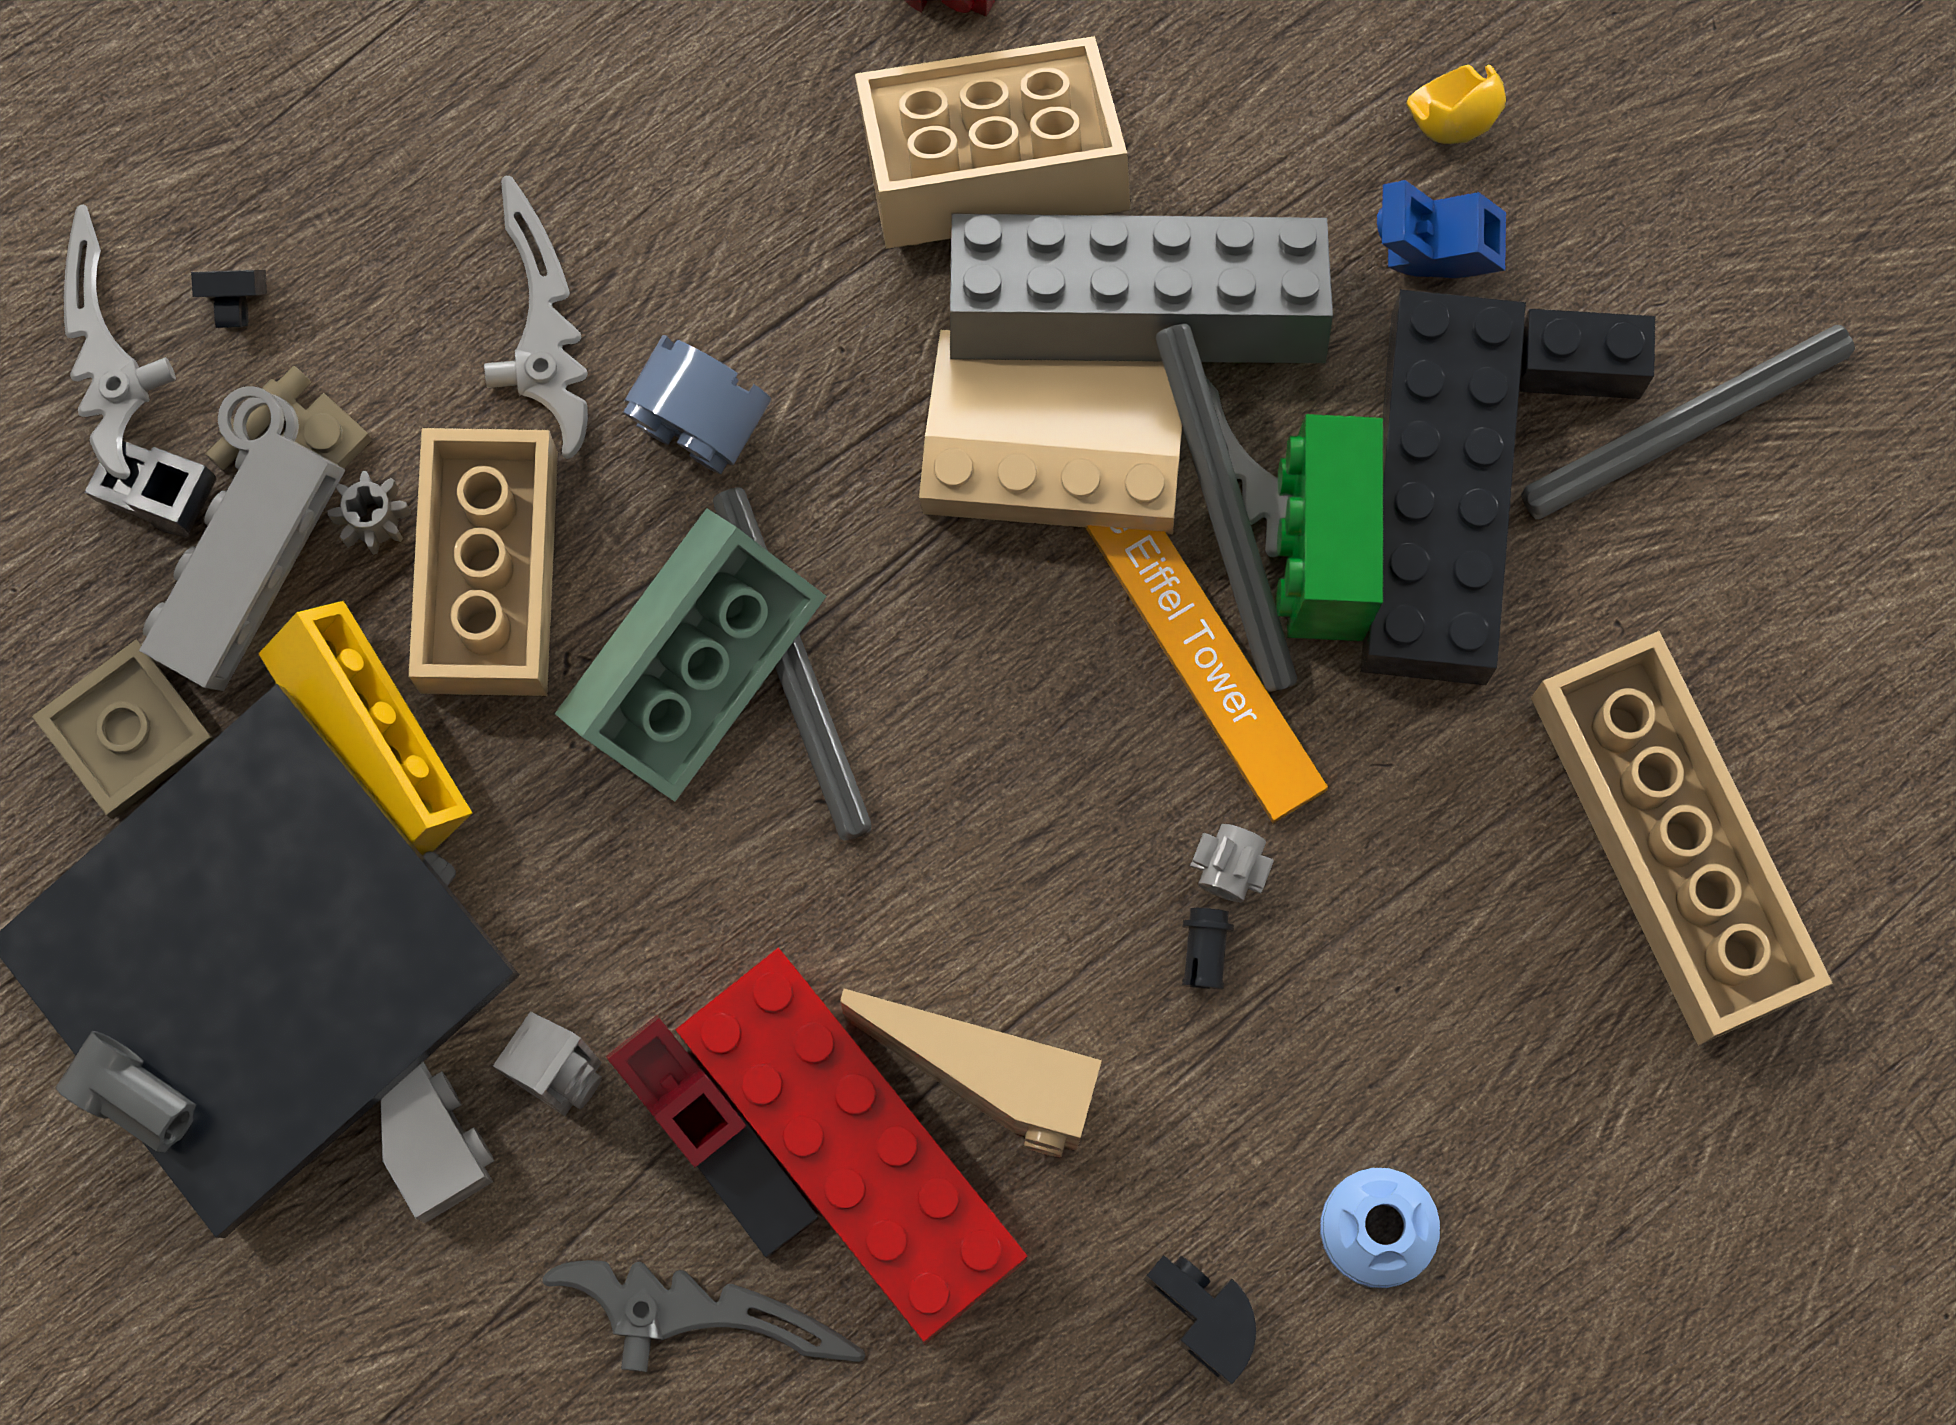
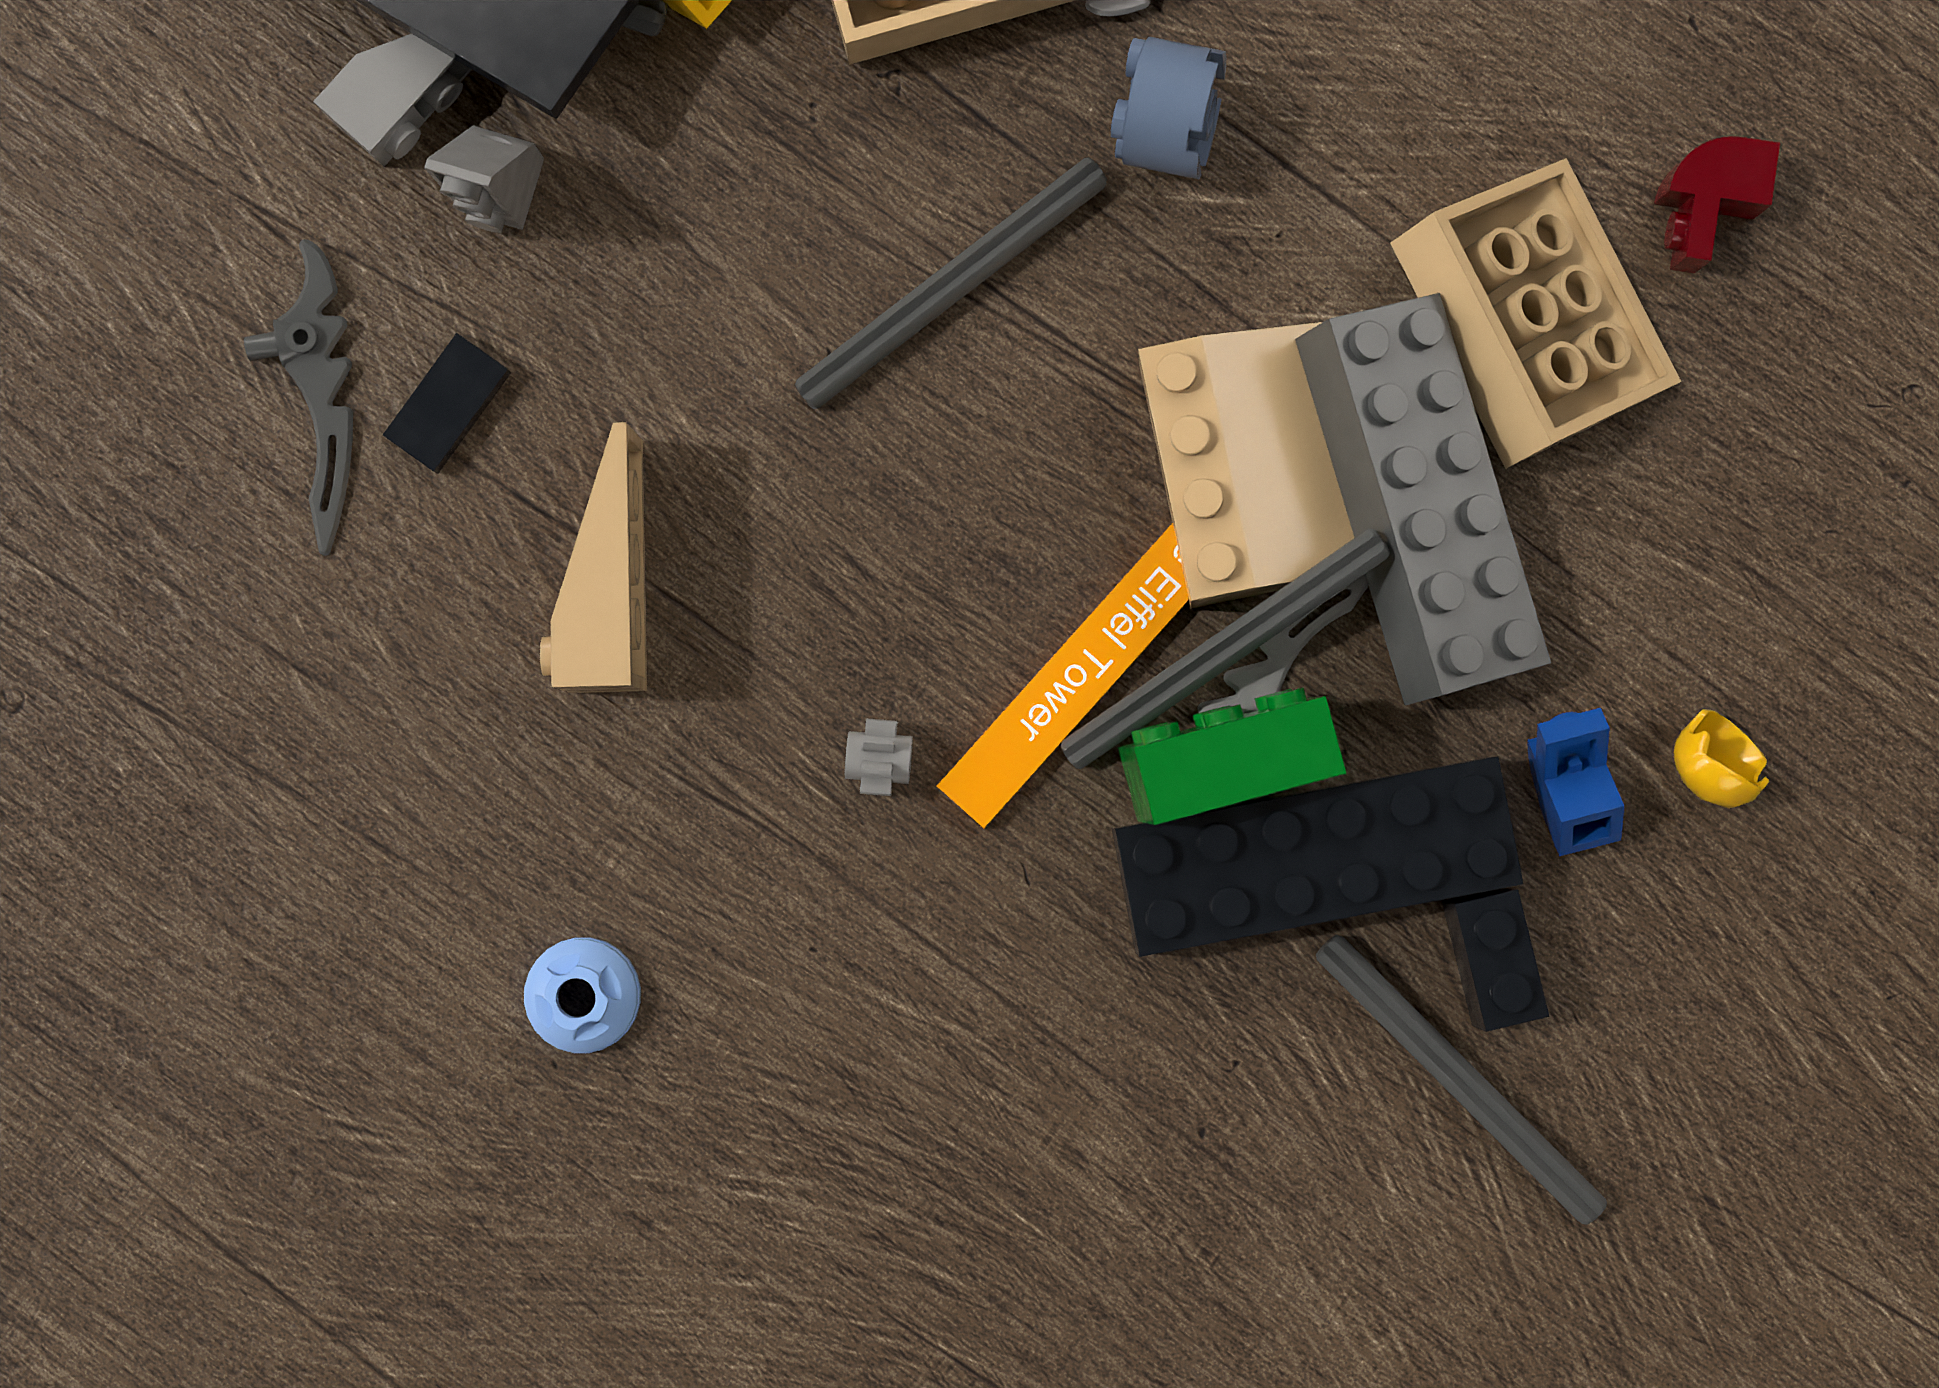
camera: 80 degrees right, 10 degrees up
(676, 1091) = (503, 311): dark red brick -> none
(690, 654) = (921, 182): sand green slope -> none
(852, 1145) = (502, 481): red brick -> none
(1206, 948) = (792, 757): black pin -> none
(1222, 1325) = (442, 870): black brick -> none
(1679, 838) = (1028, 1180): tan brick -> none

